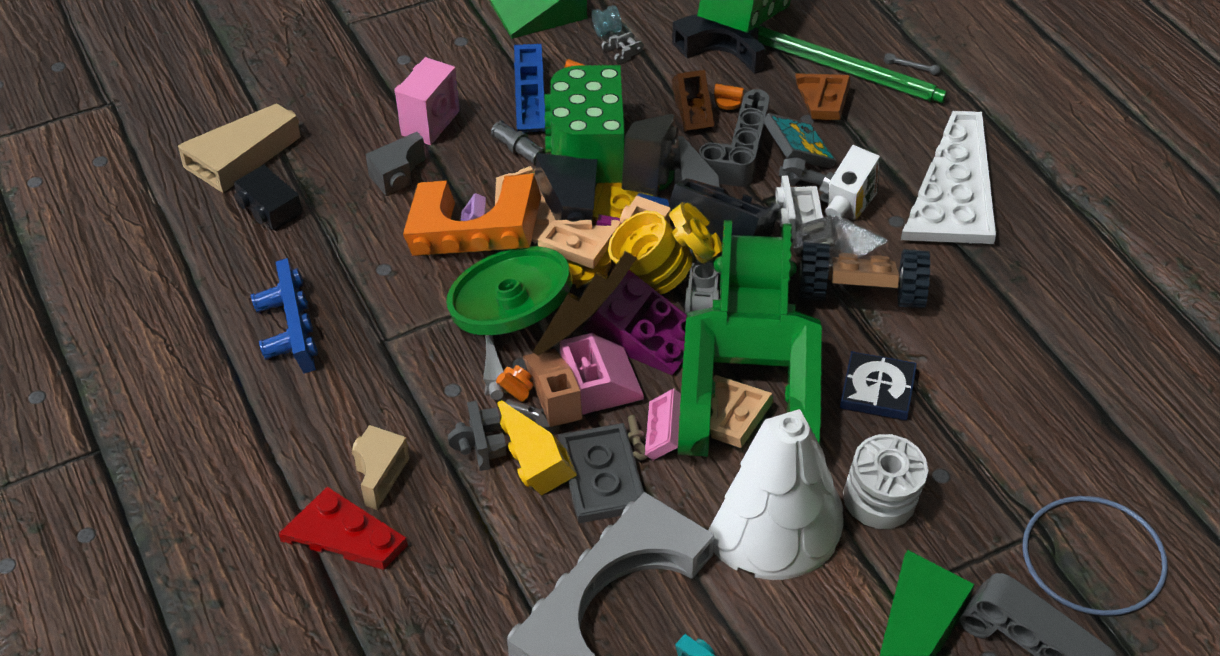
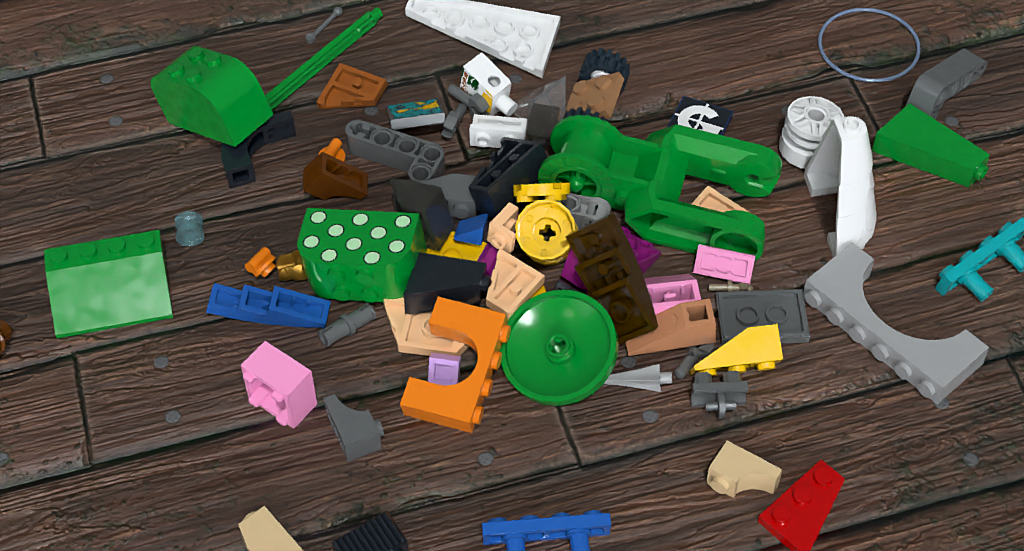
camera: 80 degrees left, 5 degrees up
(516, 382) = (663, 358): orange plate -> none
(621, 41) = (236, 220): light grey piece -> none

